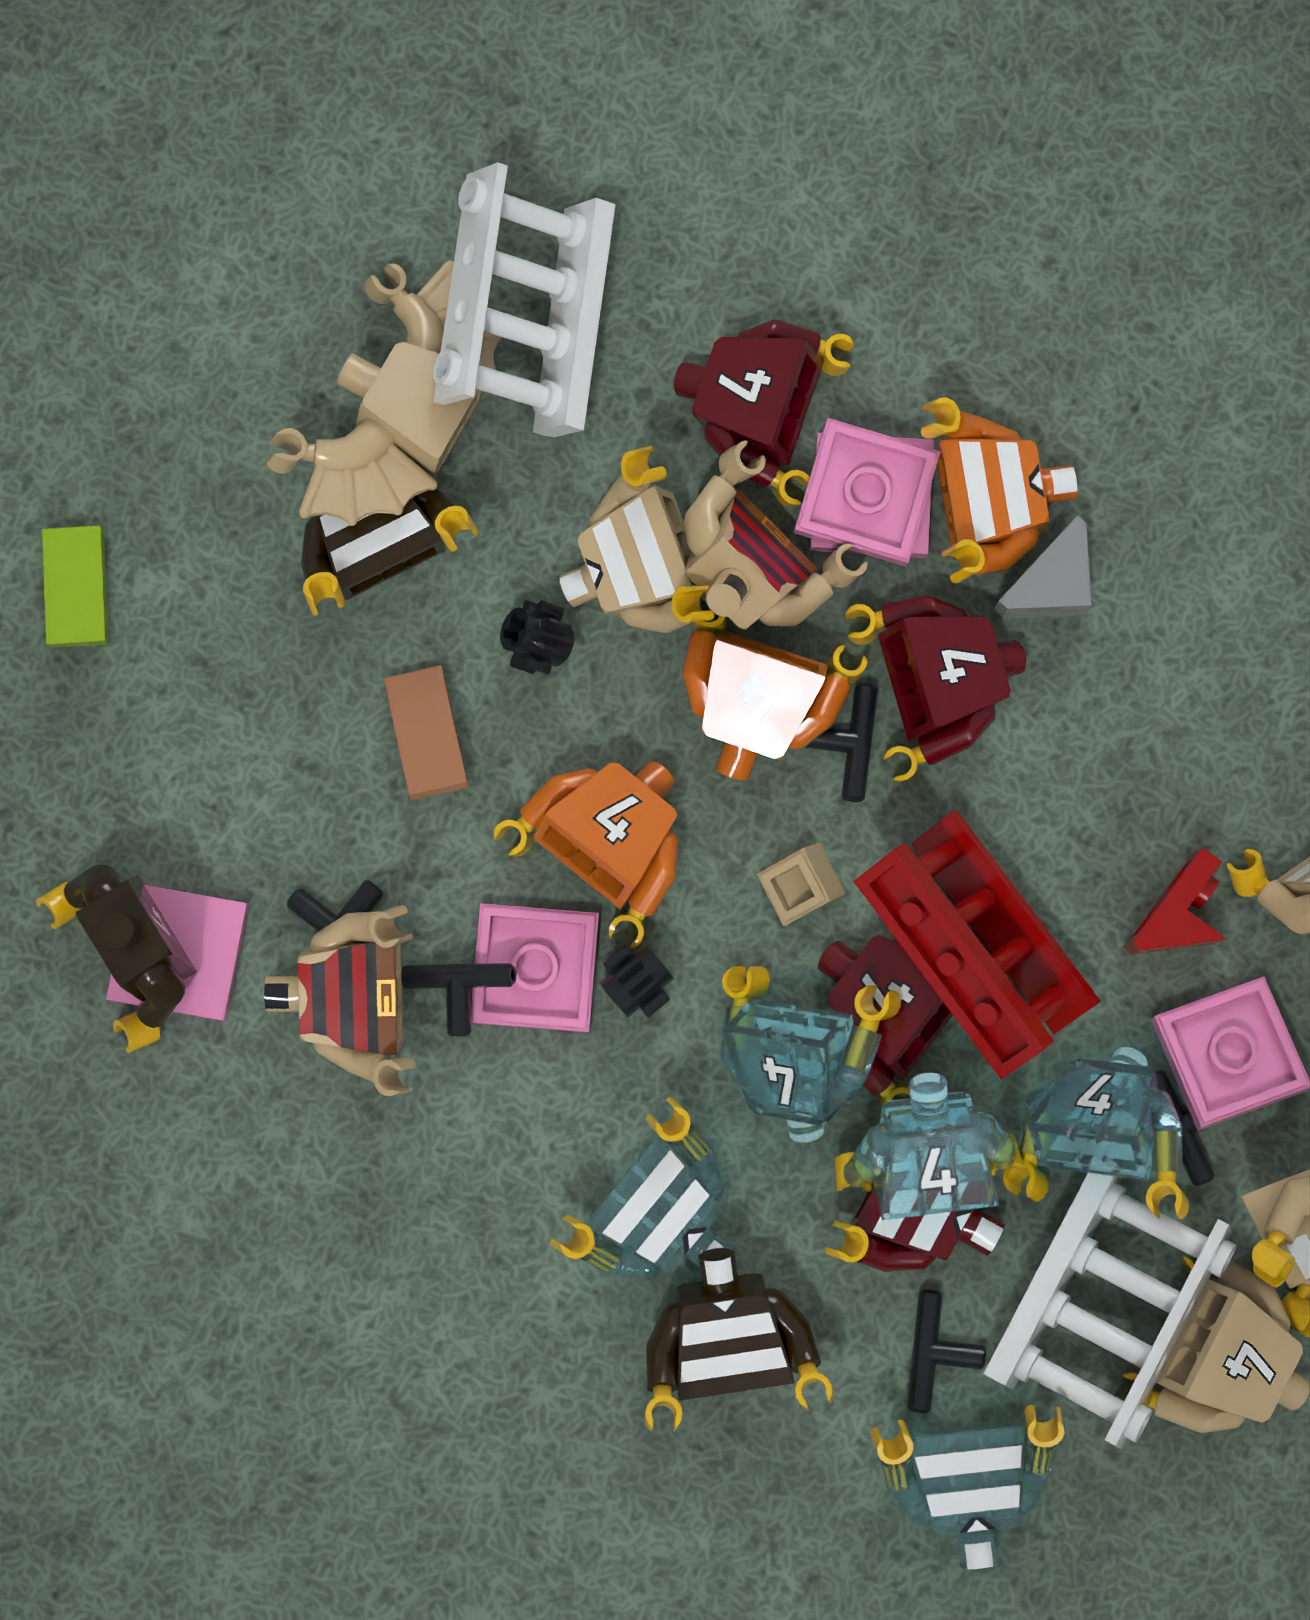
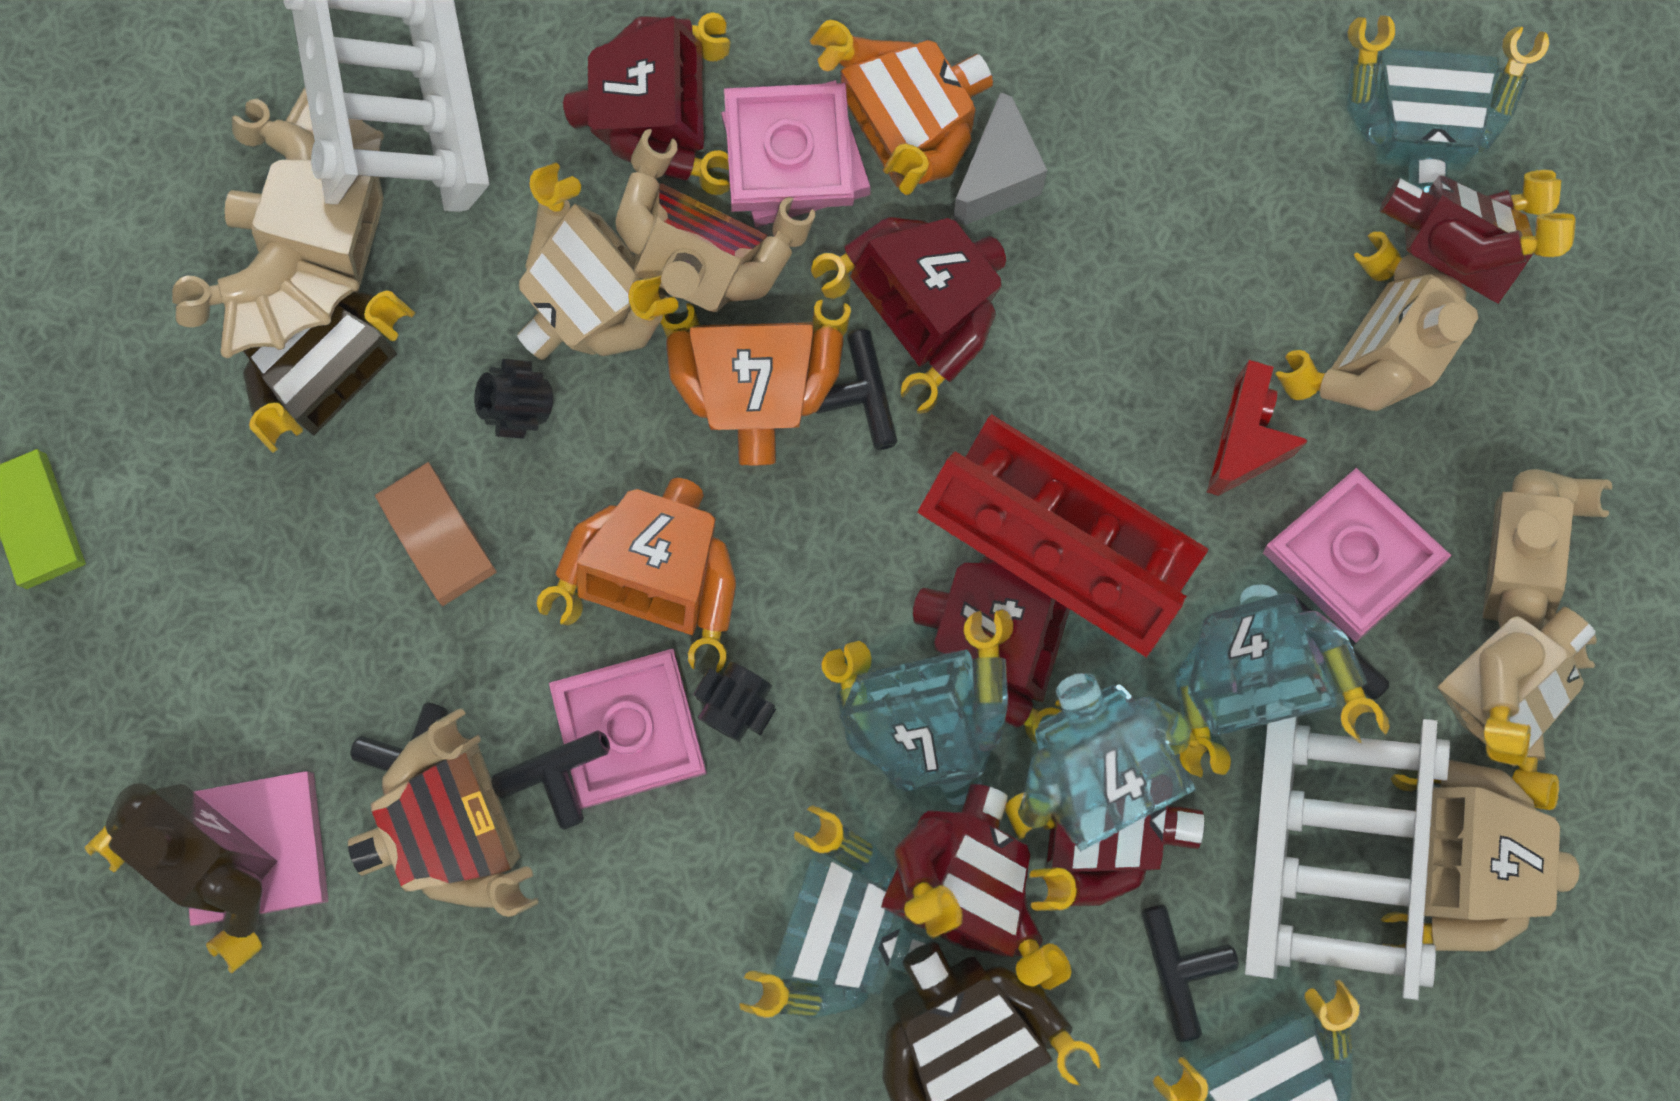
camera: 15 degrees left, 5 degrees down
(780, 1215) = (969, 885): none -> torso
(801, 884) = (865, 546): tan slope -> none

